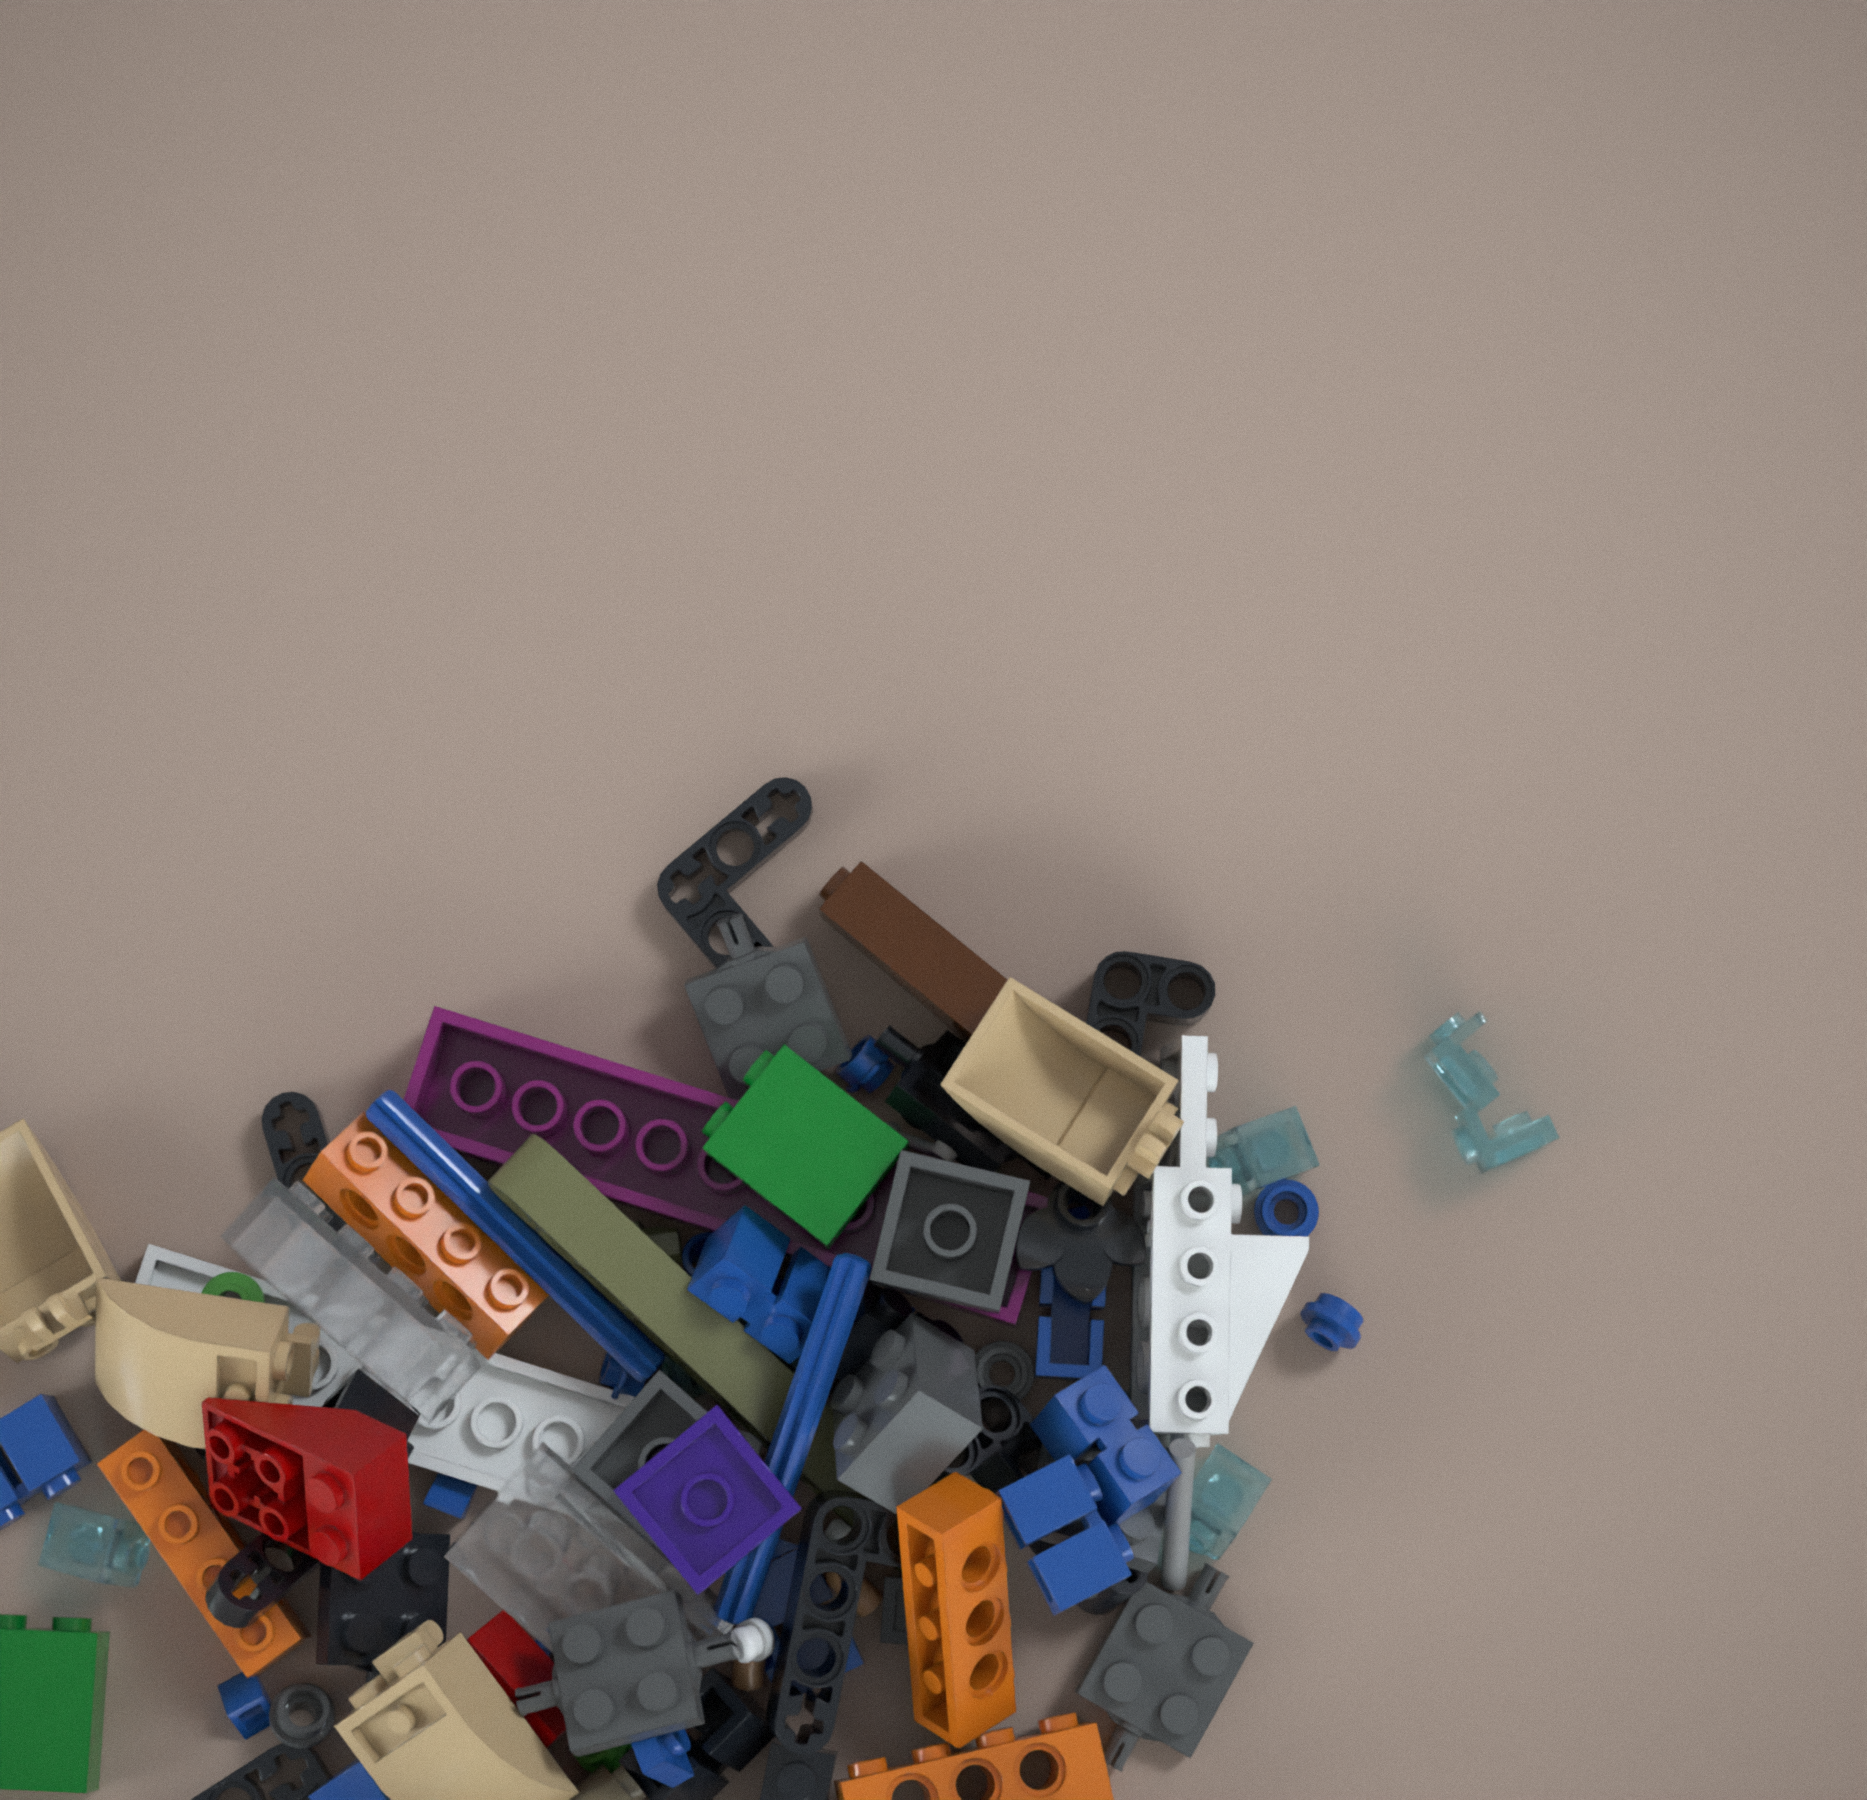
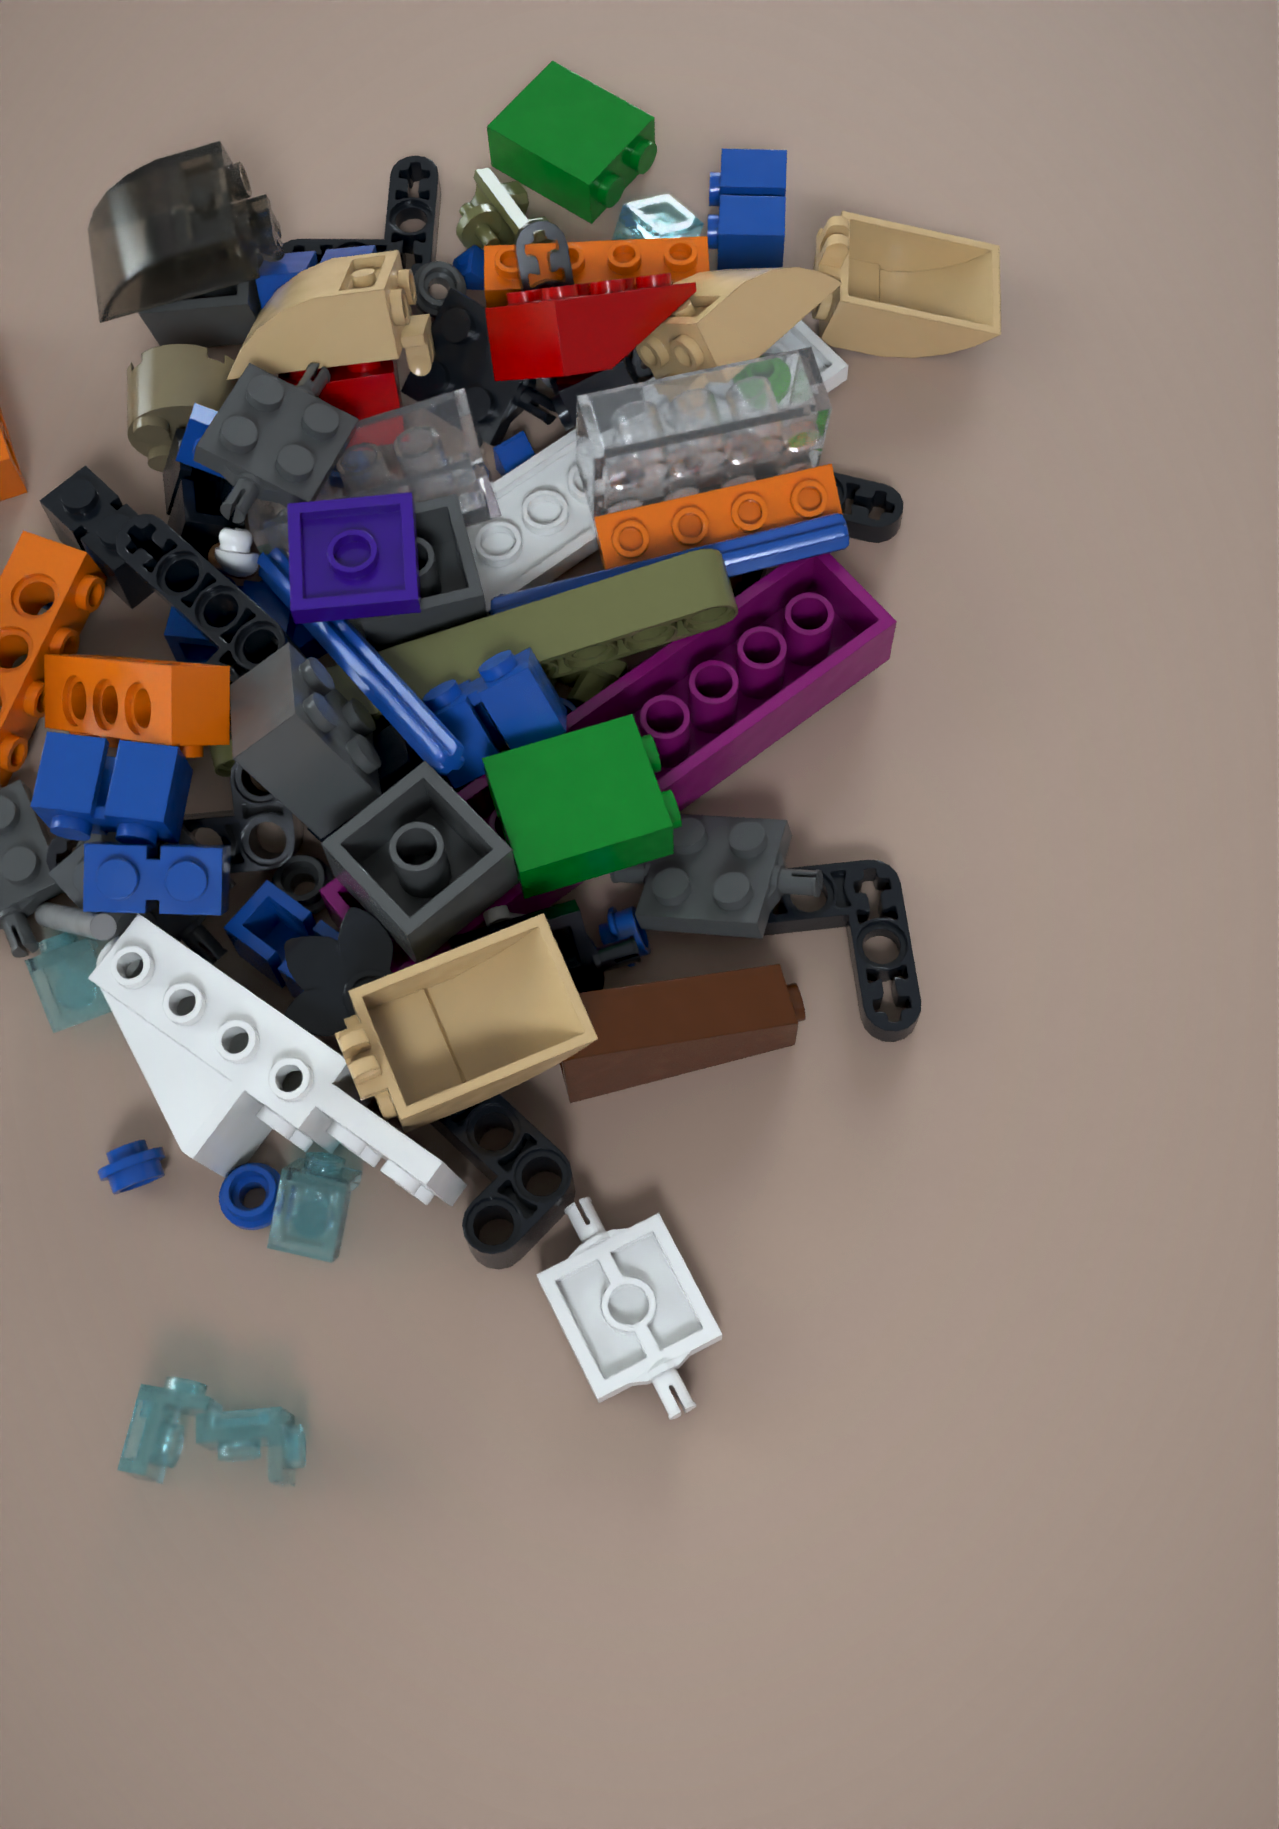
camera: 125 degrees right, 15 degrees down
(188, 1709) = (495, 213): none -> olive hips
(1171, 852) = (629, 1307): none -> white plate

